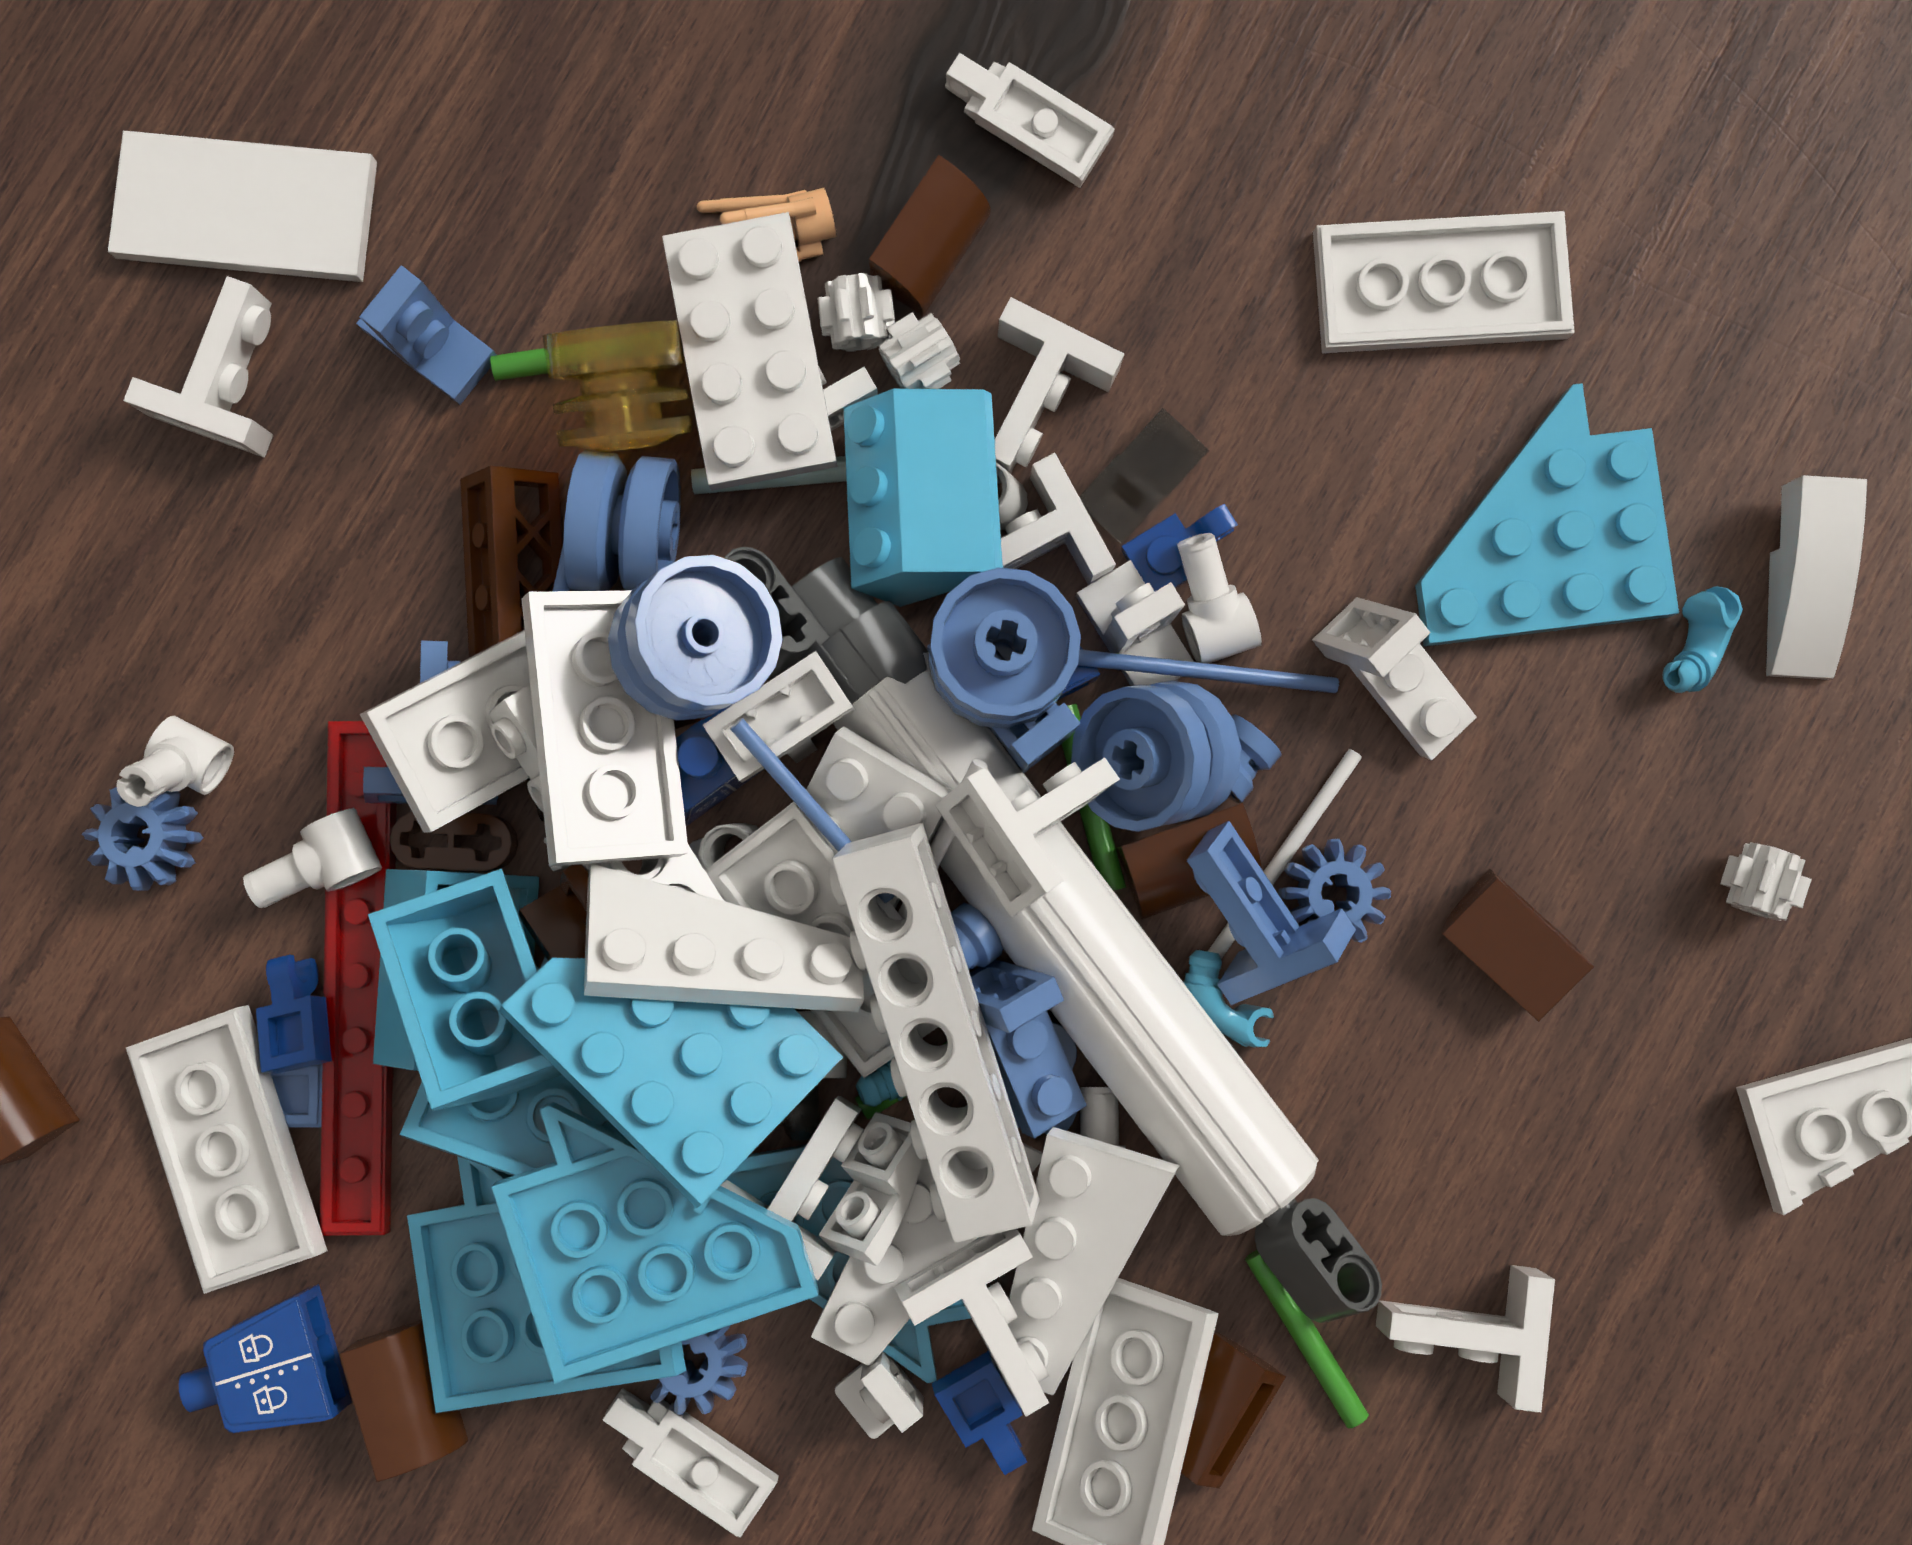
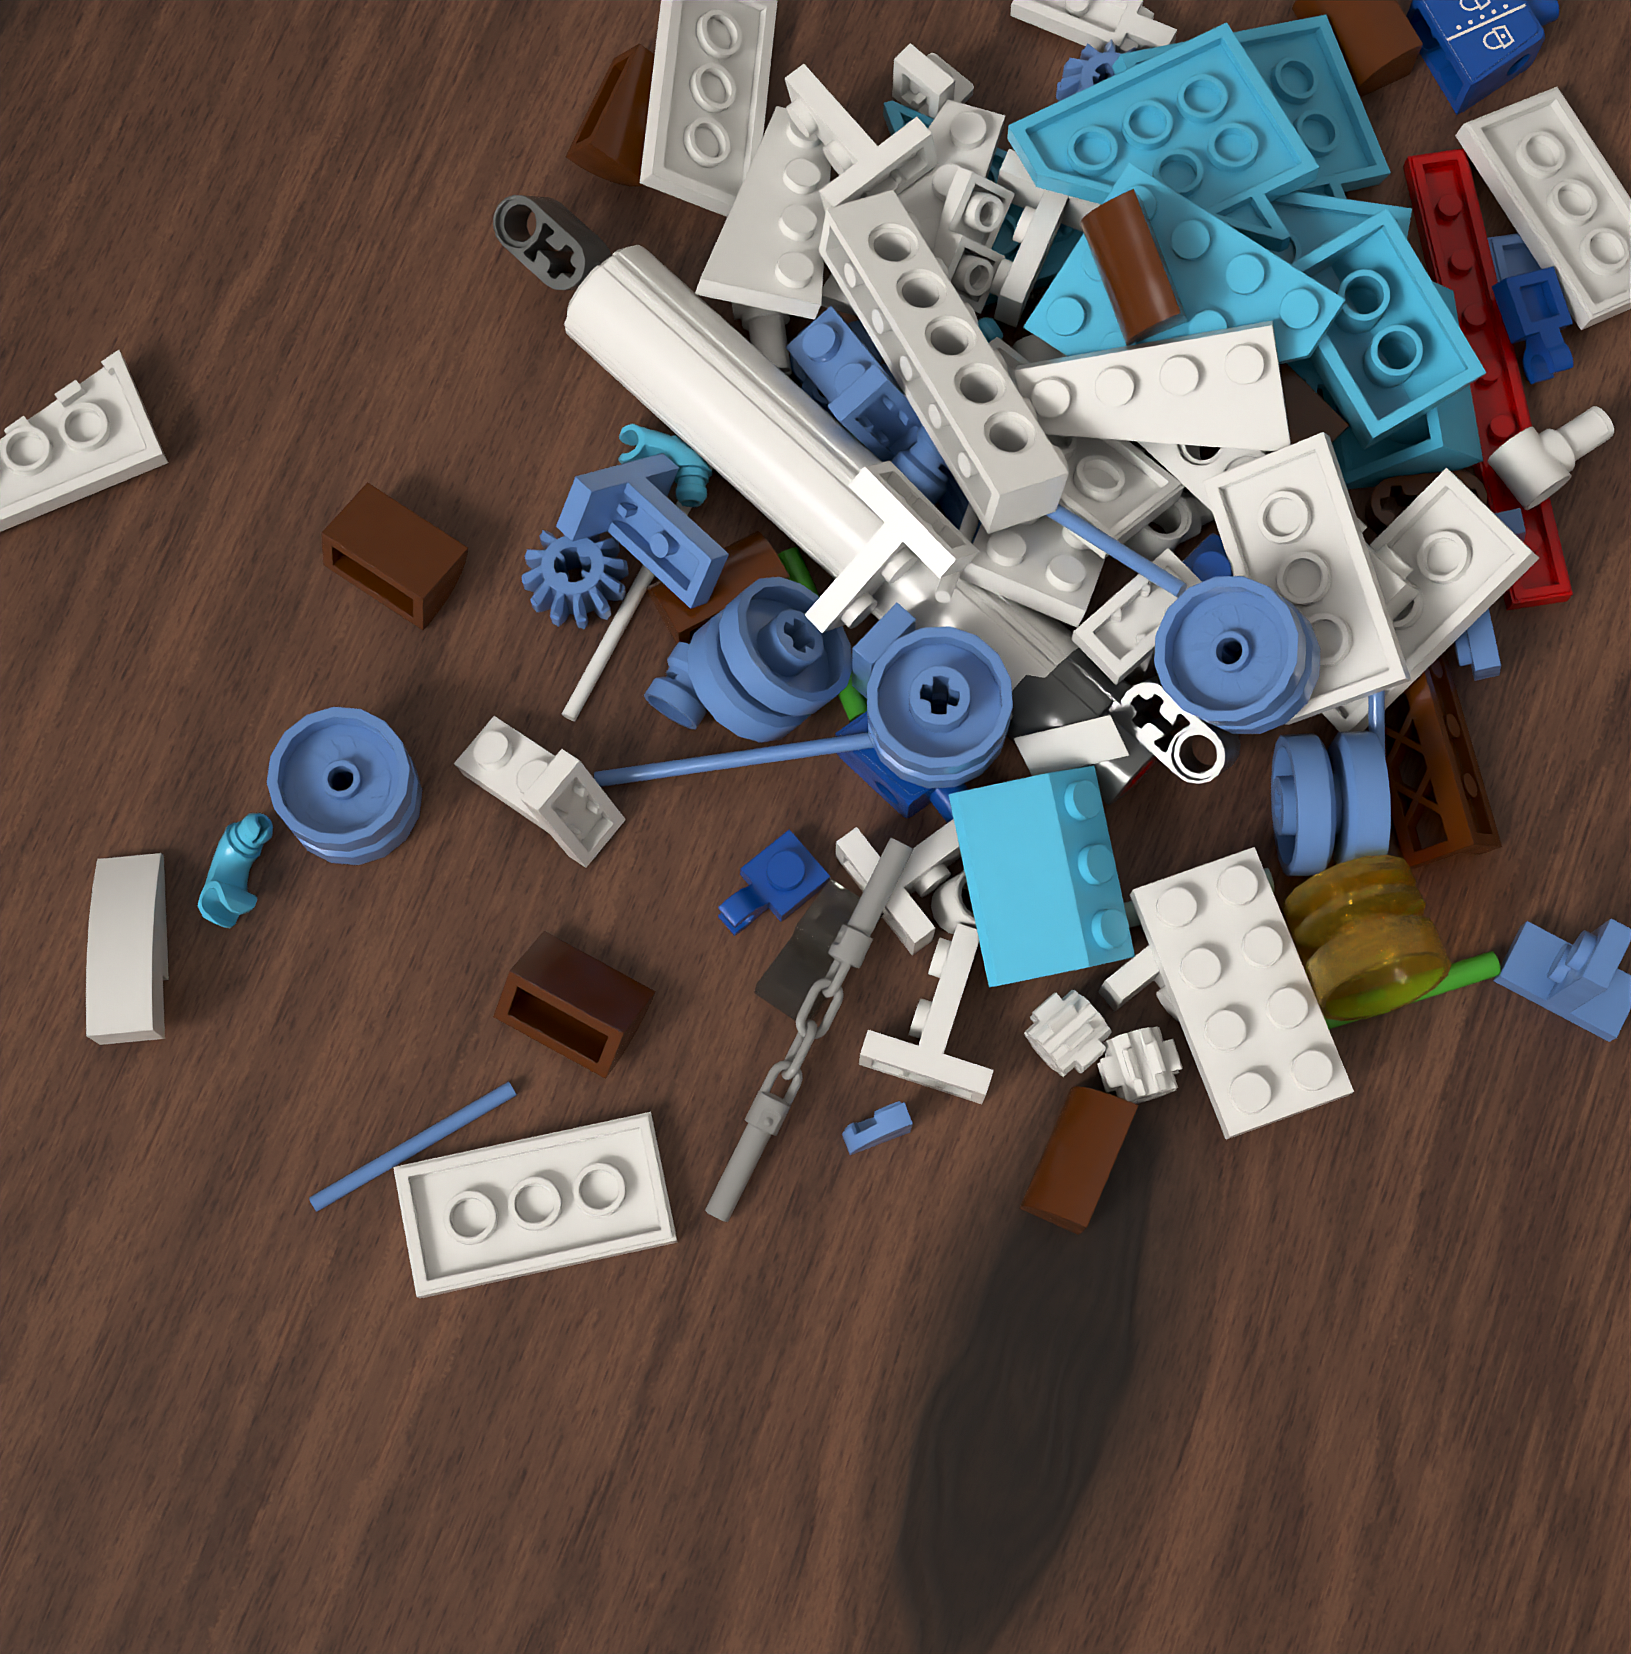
camera: 175 degrees right, 10 degrees down
(719, 1073) = (1132, 268): none -> reddish brown brick
(808, 211) = (1213, 1160): light nougat plant -> none
(871, 606) = (1071, 746): none -> white sticker
(982, 1407) = (845, 78): blue plate -> none
(1031, 117) = (994, 1308): white hinge -> none
(1111, 297) = (884, 1126): none -> medium blue tile
(1122, 452) = (768, 1109): none -> light grey piece
(1135, 619) = (804, 796): white bracket -> none
(1218, 617) = (726, 818): white pin -> none
(1310, 1344) = (535, 175): bright green bar -> none
(1386, 460) = (573, 1004): none -> reddish brown brick
(1480, 1337) = (394, 213): white bracket -> none
(1551, 355) = (412, 1146): none -> medium blue axle
(1558, 539) = (389, 954): medium azure wing -> none
(1629, 692) = (340, 750): none -> medium blue wheel
(1765, 881) = (156, 644): white gear -> none

